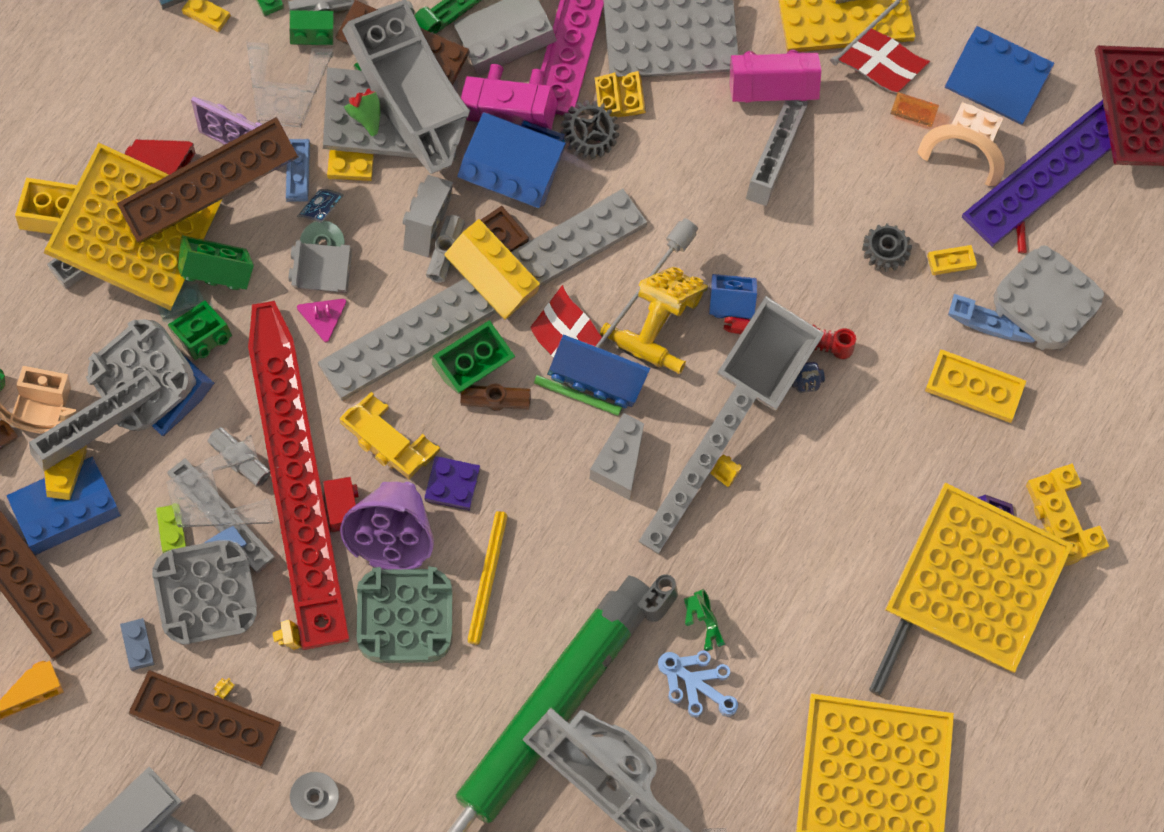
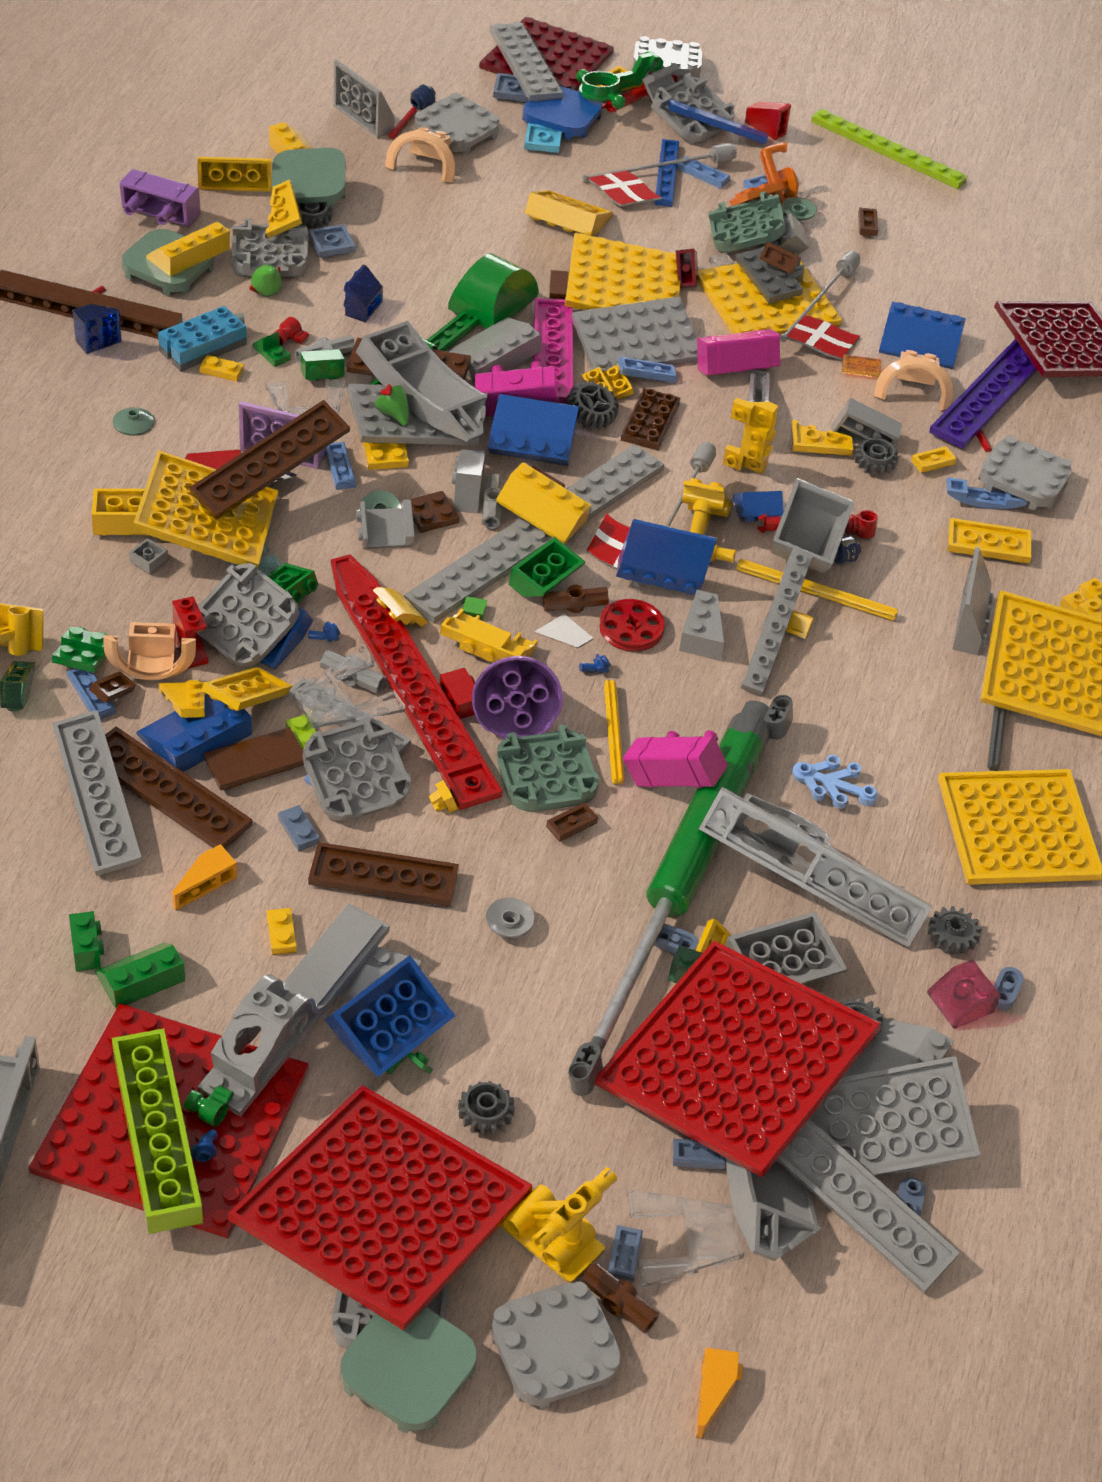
camera: 15 degrees left, 20 degrees down
(78, 388) = (189, 621): none -> red panel
(89, 767) = (281, 931): none -> yellow plate
(92, 421) = (209, 652): light grey slope -> none
(99, 81) = (133, 421): none -> sand green dish
(112, 552) = (254, 758): none -> reddish brown tile
(121, 469) = (246, 688): none -> yellow plate
(214, 263) = (288, 531): green slope -> none
(223, 688) = (394, 845): yellow plate -> none
(228, 400) = (329, 632): none -> blue plate
(306, 382) = (400, 607): none -> yellow slope
(321, 205) = (371, 482): sticker -> none
(322, 316) = (395, 565): dark pink piece -> none
(378, 249) = (433, 512): none -> reddish brown plate
(388, 389) = (475, 607): none -> bright green tile
(410, 687) = (572, 821): none -> reddish brown plate
(452, 483) = (563, 663): dark purple plate -> none
(476, 434) = (566, 631): none -> white sticker
(499, 487) = (600, 664): none -> blue plate
(528, 645) = (676, 761): none -> dark pink piece
(556, 444) = (638, 620): none -> red wedge
(580, 396) = (647, 591): bright green piece -> none
(653, 152) = (650, 419): none -> reddish brown tile
(668, 83) = (647, 369): none -> medium blue tile
(700, 604) = (815, 719): green piece -> none
(748, 214) = (757, 435): none -> yellow bracket
(765, 425) = (821, 590): none -> yellow axle
(827, 212) = (816, 441): none -> yellow wing
(888, 203) = (865, 423): none -> light grey wedge
(921, 483) = (974, 607): none -> light grey slope

